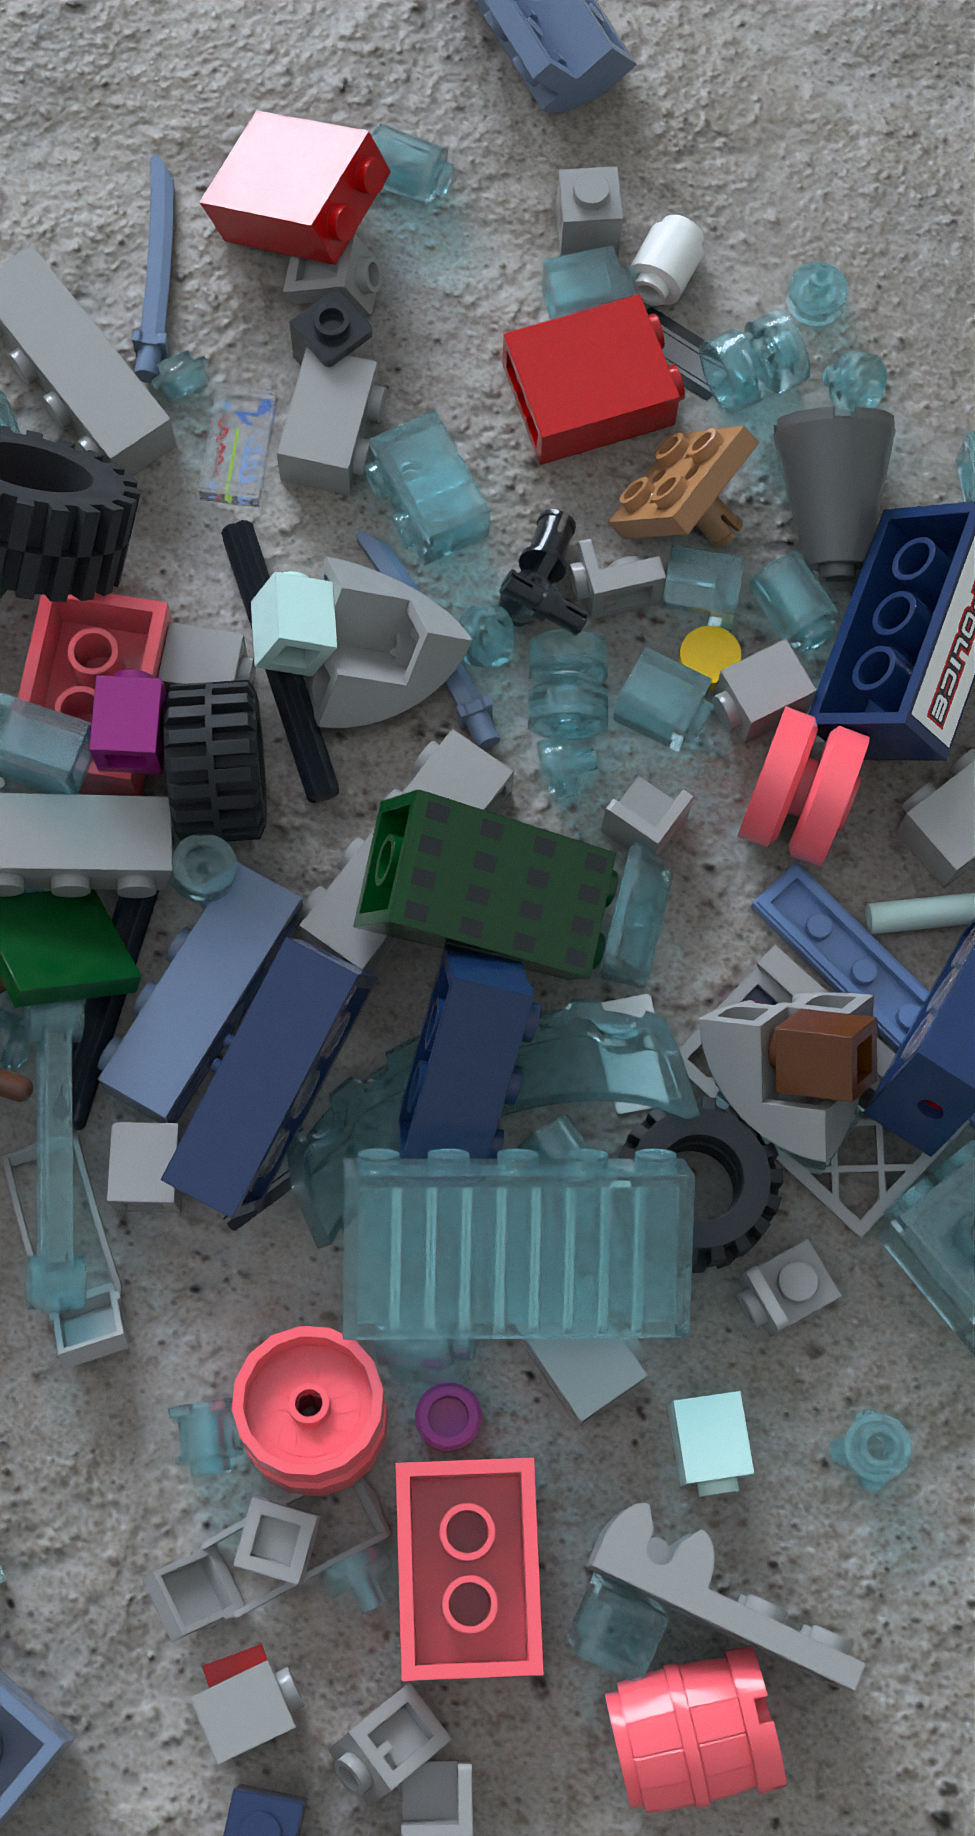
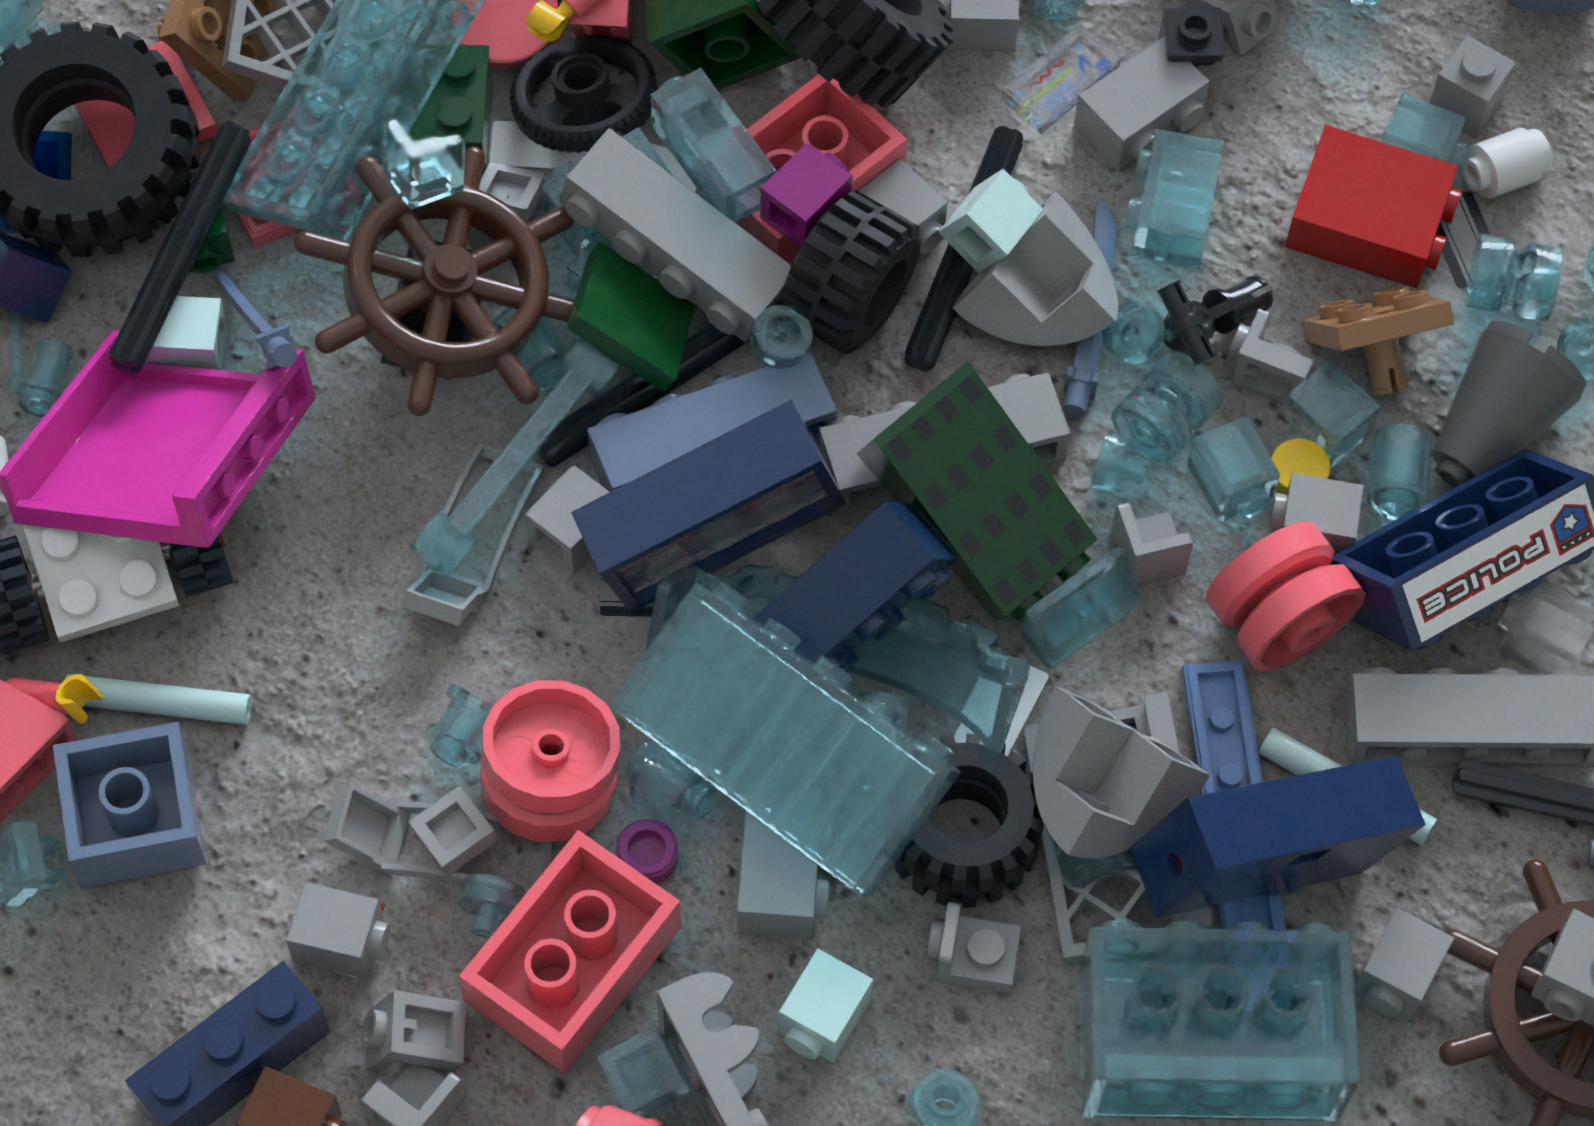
camera: 40 degrees right, 10 degrees down
(825, 1054) = (1129, 775): reddish brown brick -> none

